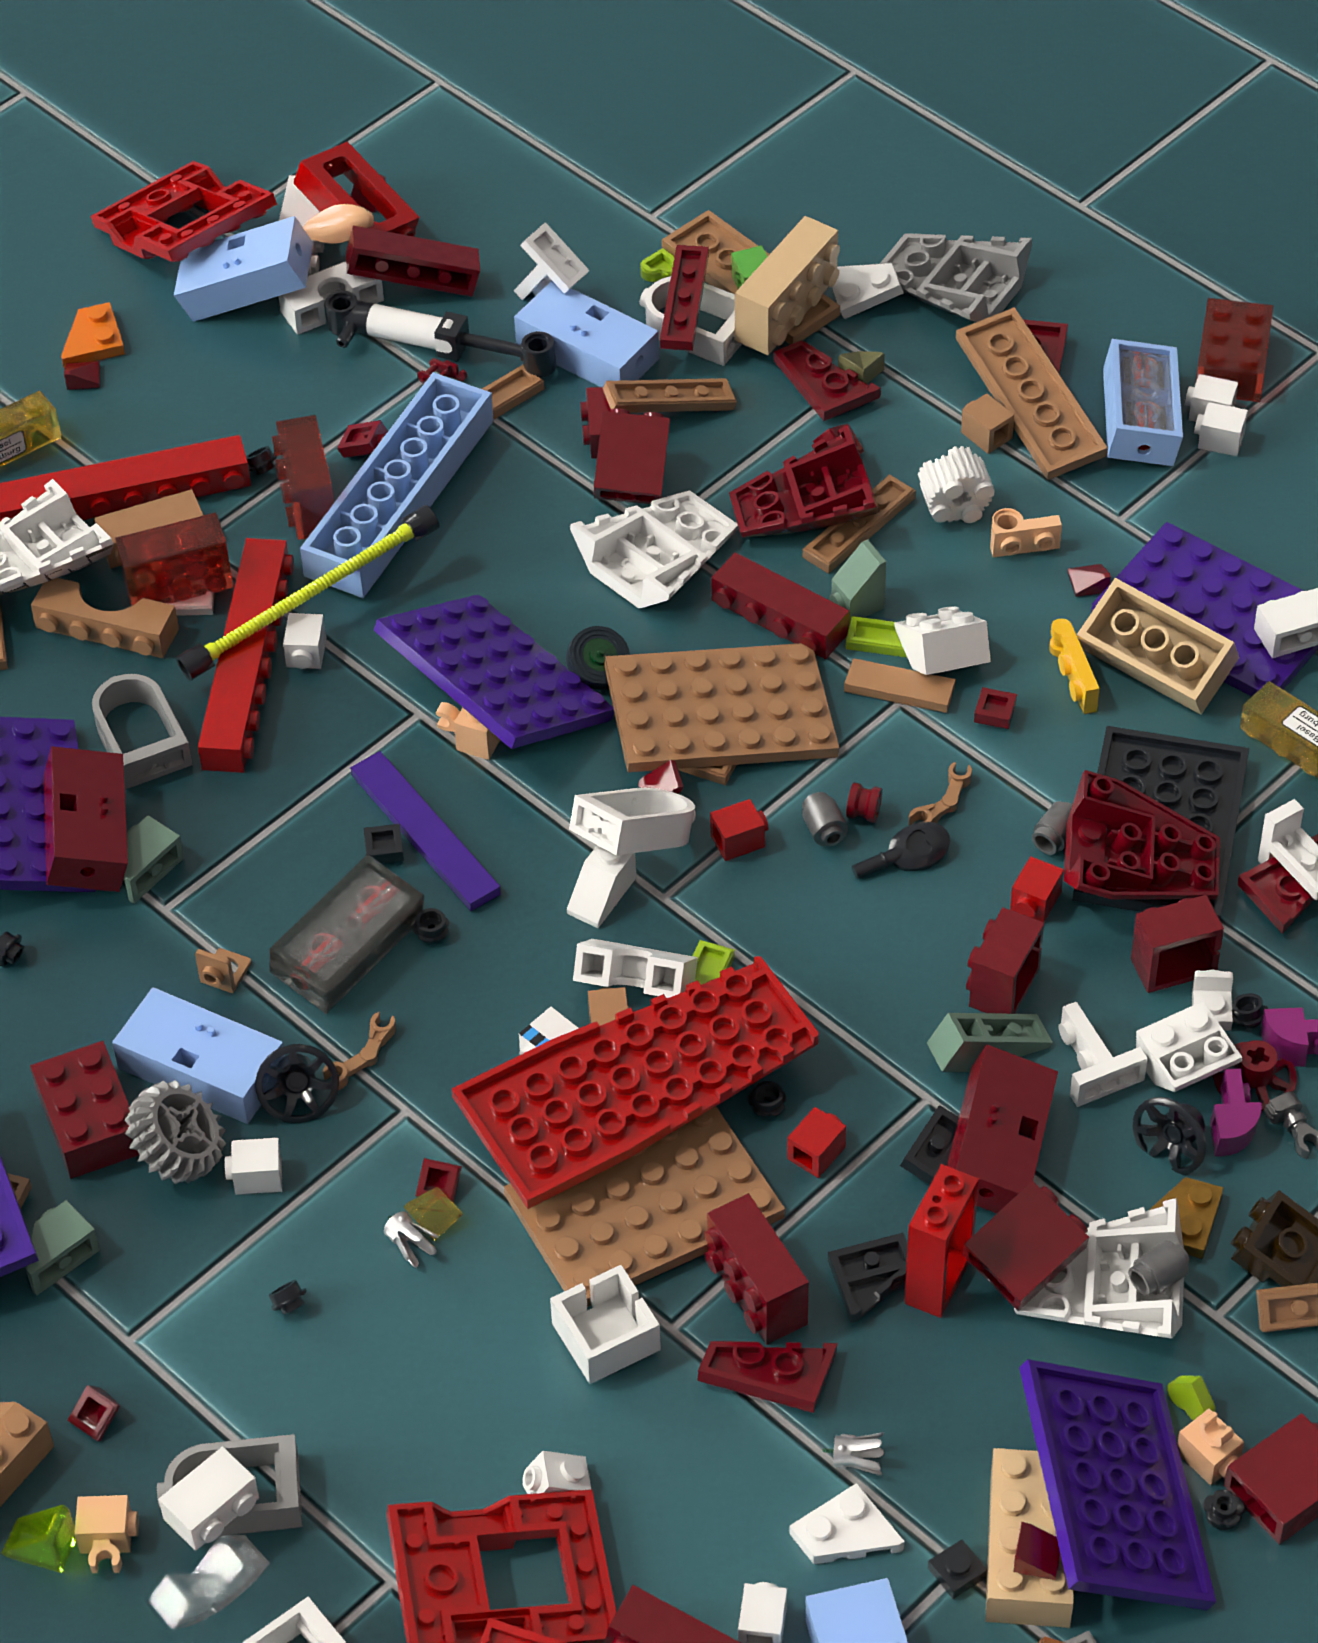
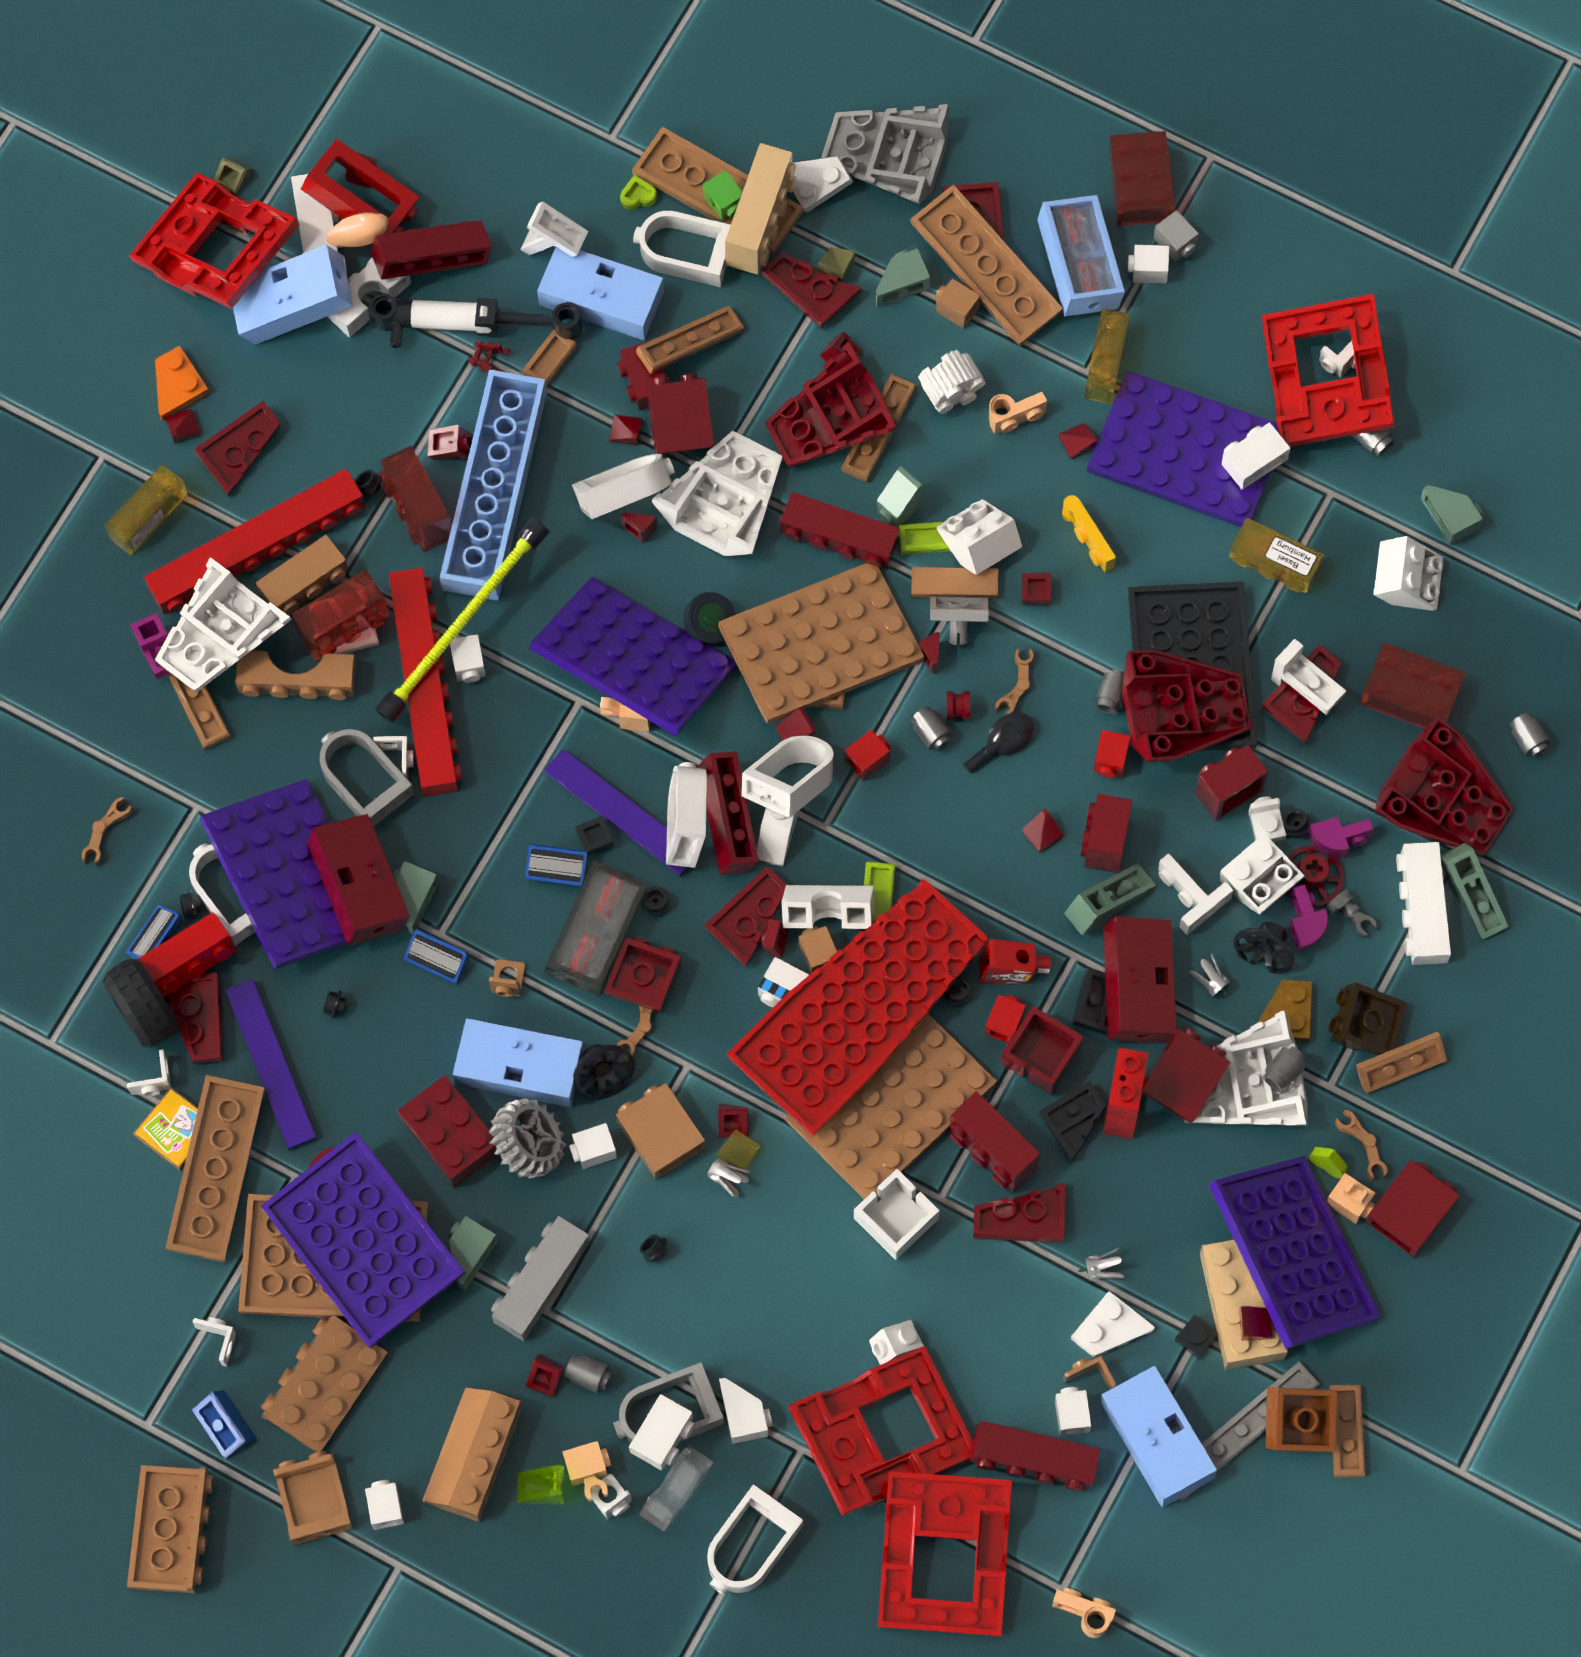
camera: 15 degrees left, 20 degrees up
(123, 1580) = (618, 1505): none -> white bracket
(132, 1297) = (540, 1278): none -> light grey brick
(133, 400) = (237, 446): none -> dark red wing
(149, 927) = (436, 956): none -> slope
(149, 1419) = (588, 1373): none -> flat silver brick
(194, 716) = (401, 743): none -> white bracket
(231, 170) = (232, 174): none -> olive slope
(322, 859) = (556, 864): none -> slope
(329, 1515) = (744, 1413): none -> white slope
(344, 1168) = (660, 1130): none -> medium nougat brick
(386, 993) = (643, 974): none -> dark red plate
(495, 838) = (686, 815): none -> white window
(534, 965) = (746, 916): none -> dark red wing
(543, 507) = (623, 484): none -> white window
(548, 851) = (729, 814): none -> dark red brick
(551, 555) = (639, 525): none -> dark red slope
(561, 991) = (775, 938): none -> dark red plate
(569, 471) = (625, 430): none -> dark red slope
(684, 297) = (675, 238): dark red plate -> none
(796, 1567) = (1085, 1366): none -> medium nougat bracket
(842, 1078) = (1010, 962): none -> red torso
(850, 740) = (930, 650): none -> dark red slope
(851, 1181) = (1042, 1050): none -> dark red piece
(893, 707) = (959, 611): none -> light grey tile
(927, 954) = (1042, 831): none -> dark red slope
(929, 390) = (902, 278): none -> sand green slope
(1101, 1162) = (1218, 980): none -> flat silver piece
(1146, 502) = (1107, 356): none -> clear yellow brick
(1158, 646) = (1152, 505): tan brick -> none
(1210, 390) = (1133, 232): white brick -> none
(1219, 1518) = (1370, 1250): black plate -> none
(1252, 1388) = (1367, 1140): none -> medium nougat piece
(1264, 408) = (1178, 235): none -> light grey brick

